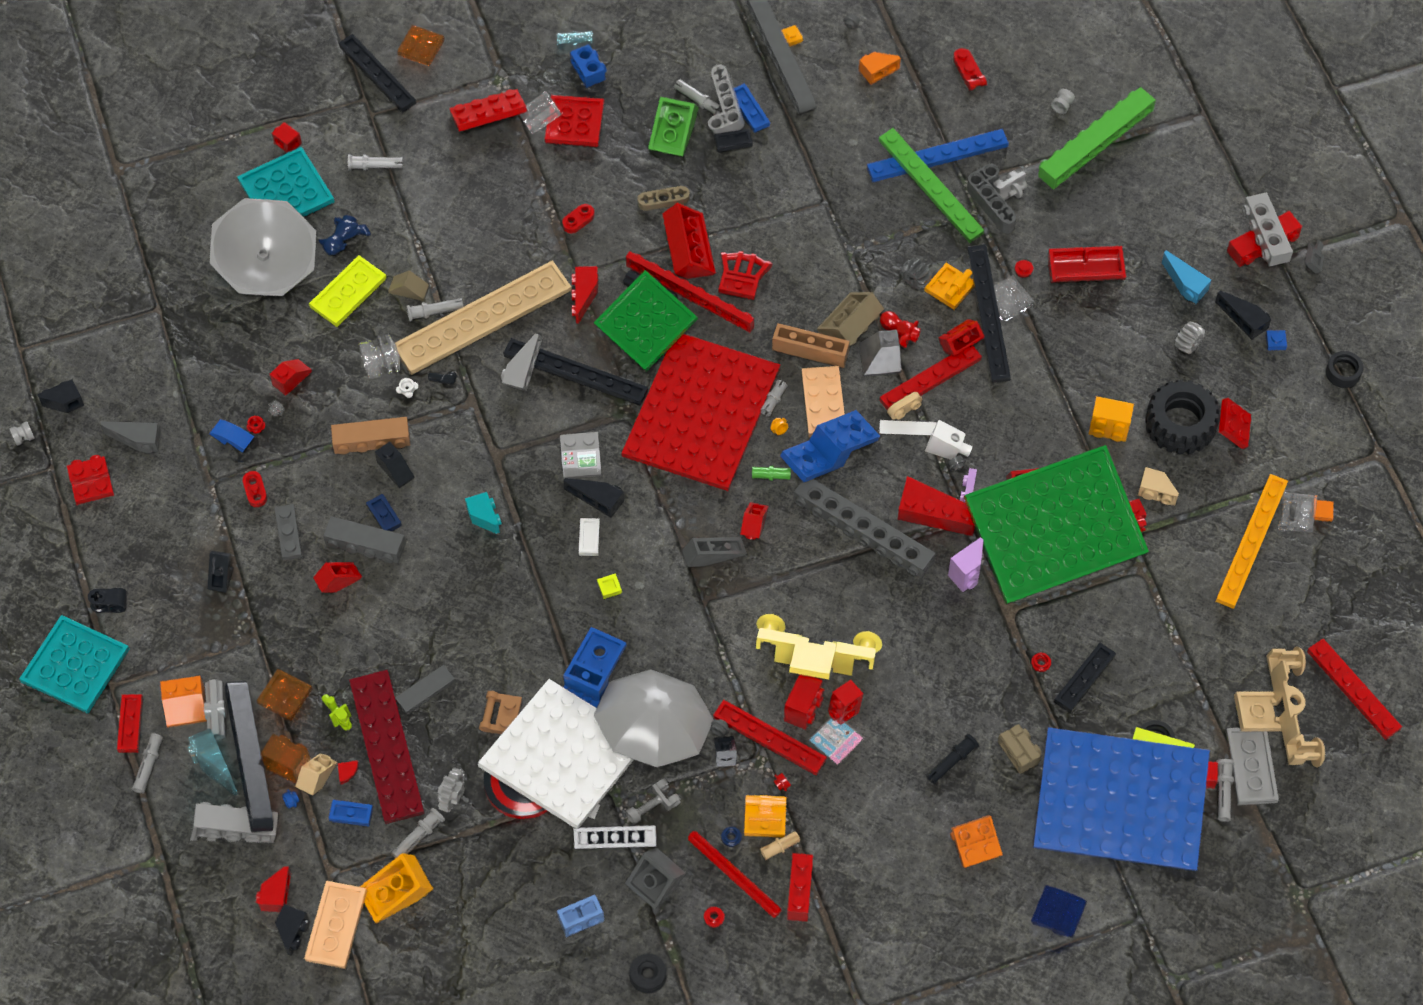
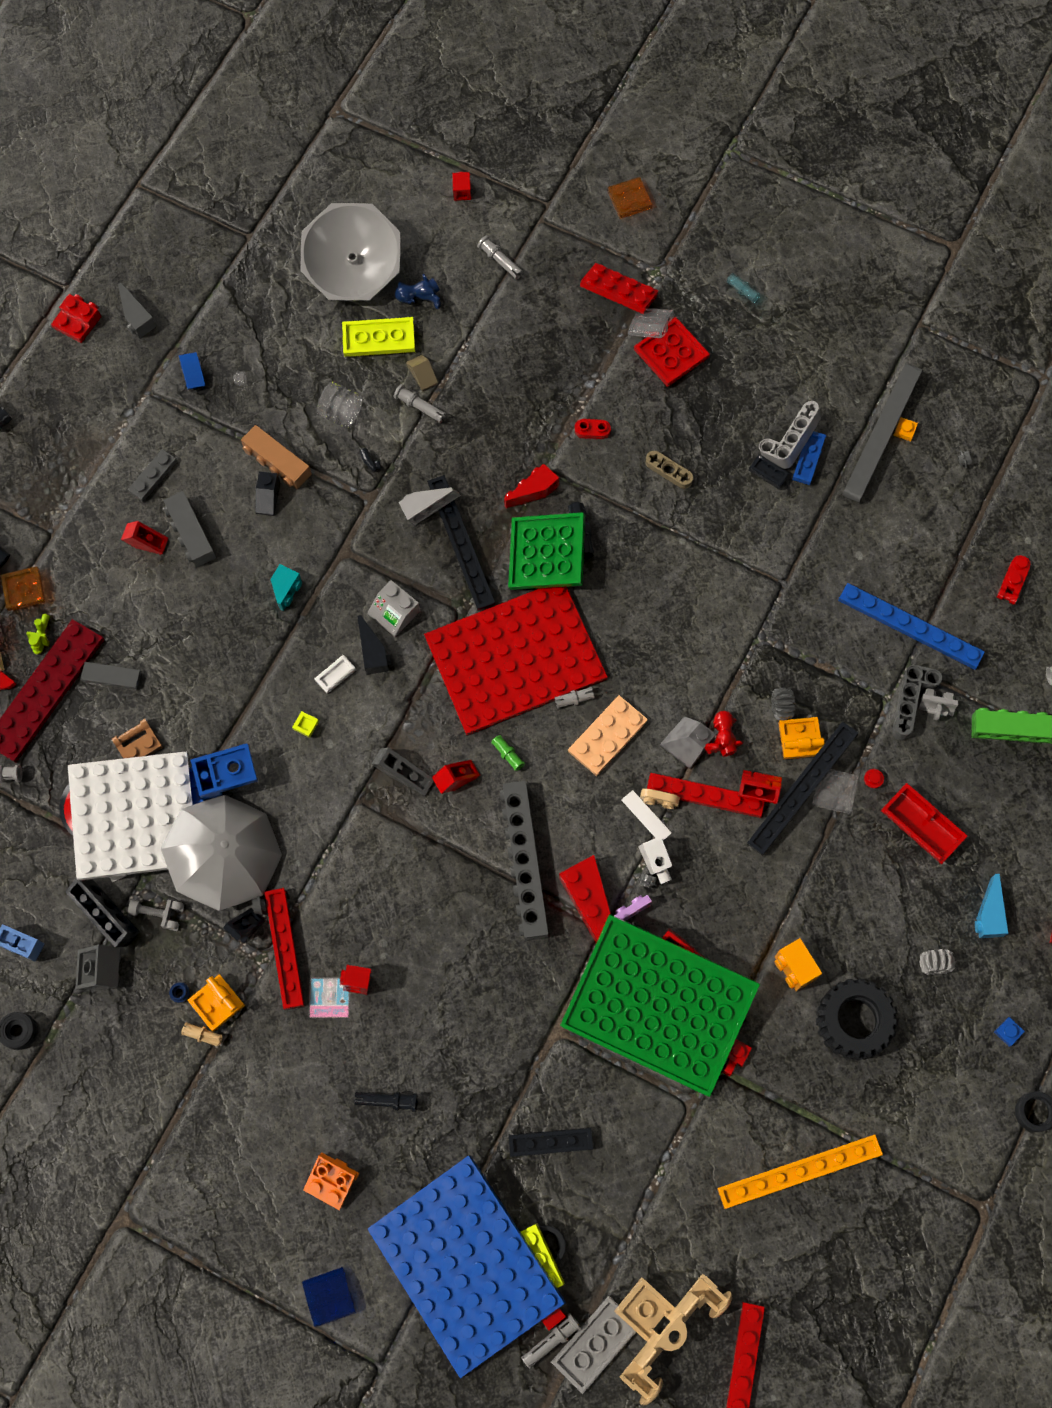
camera: 50 degrees right, 10 degrees up
(21, 433) = (70, 245): light grey wheel -> none
(62, 397) = (123, 243): black slope -> none
(219, 571) = (78, 461): black slope -> none
(255, 420) = (215, 373): red plate -> none
(255, 490) = (162, 424): red plate -> none
(288, 179) = (424, 222): teal plate -> none
(289, 375) = (274, 362): red slope -> none
(377, 73) = (575, 192): black plate -> none
(383, 513) = (222, 522): dark blue plate -> none
(406, 382) = (334, 442): white plate -> none
(451, 790) = (38, 765): light grey gear -> none
(482, 317) = (444, 441): tan plate -> none
(587, 65) = (725, 317): blue brick -> none
(673, 126) = (736, 420): bright green slope -> none
(688, 242) = (647, 520): red slope -> none
(691, 292) = (608, 566): red plate -> none
(703, 100) = (780, 413): light grey pin -> none
(714, 922) = (107, 1042): red plate -> none
(734, 874) = (151, 1022): red axle -> none
(740, 283) = (648, 587): red plate -> none
(779, 426) = (553, 723): light orange plate -> none
(781, 782) = (255, 990): red plate -> none
(800, 887) = (177, 1080): red brick -> none
(803, 701) = (330, 947): red brick -> none
(810, 345) = (642, 684): medium nougat brick -> none
(813, 658) = (362, 922): light yellow piece -> none
(830, 446) = (567, 775): blue bracket -> none
(852, 316) = (697, 691): dark tan slope -> none
(878, 65) = (944, 513): orange slope -> none
(931, 185) = (875, 645): bright green plate -> none
(966, 565) = (560, 968): lavender slope -> none
(1019, 748) = (441, 1145): dark tan brick -> none
(1041, 657) = (533, 1089): red plate -> none
(1158, 487) = (775, 1052): tan slope -> none
(1235, 423) = (892, 1066): red plate -> none
(1245, 314) = (1006, 988): black slope -> none
(1304, 512) = (865, 1193): clear plate -> none
(1324, 511) = (885, 1206): orange tile -> none

